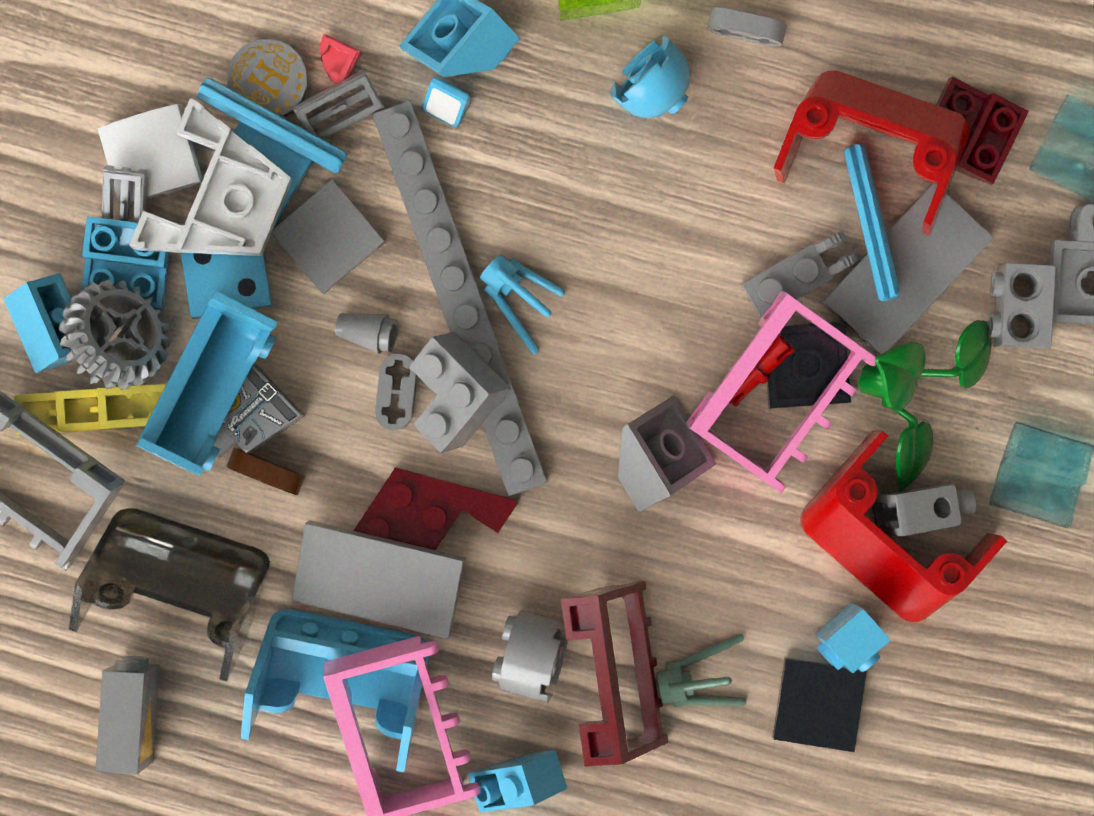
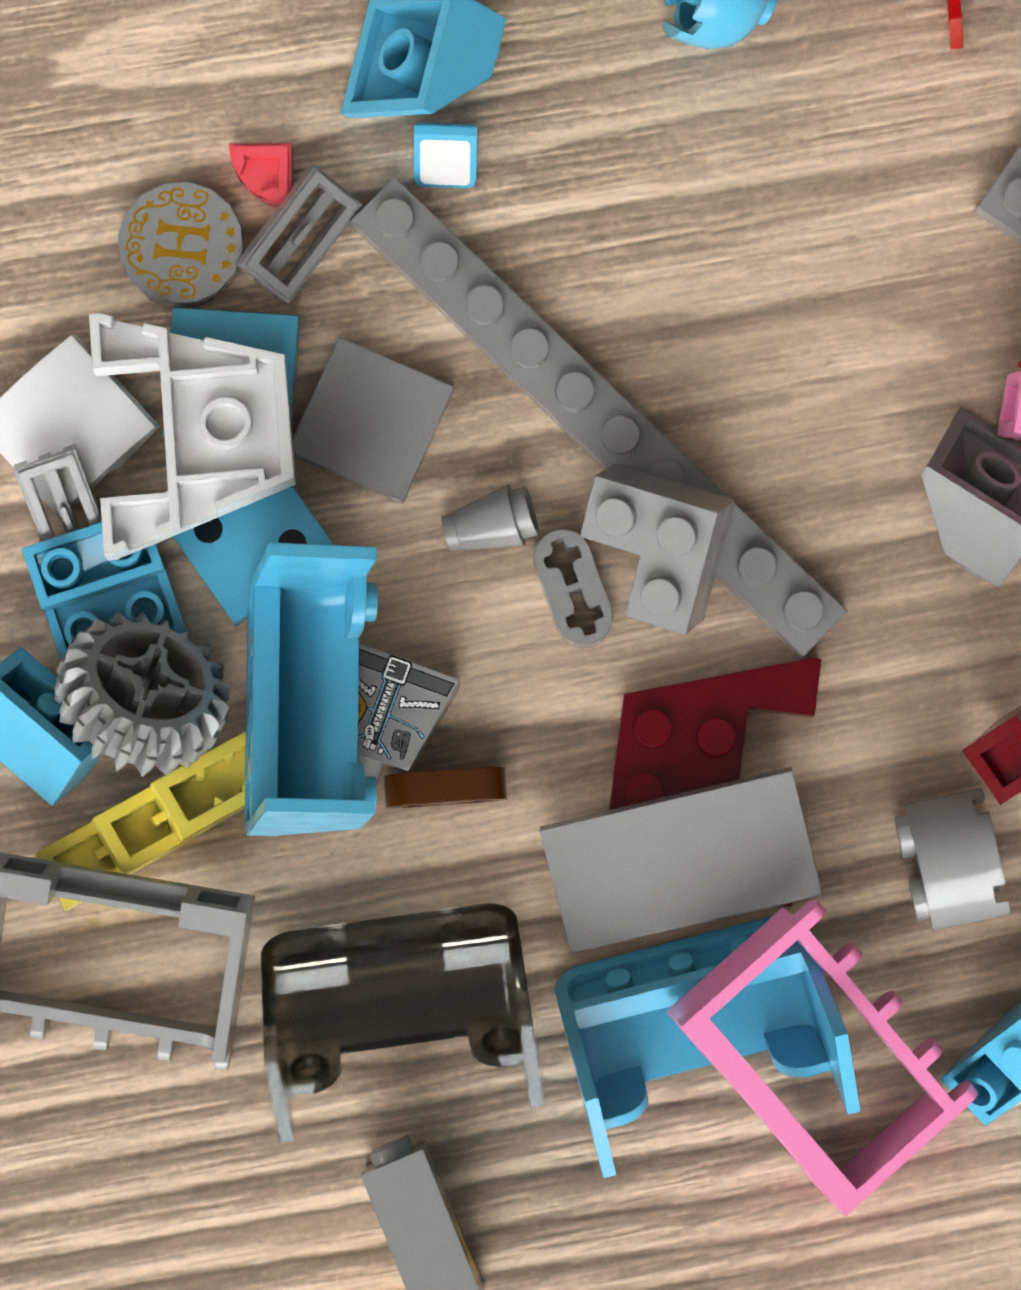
camera: 30 degrees left, 5 degrees down
(272, 125) = (220, 299): medium azure axle -> none
(504, 278) = (646, 356): medium azure plant -> none

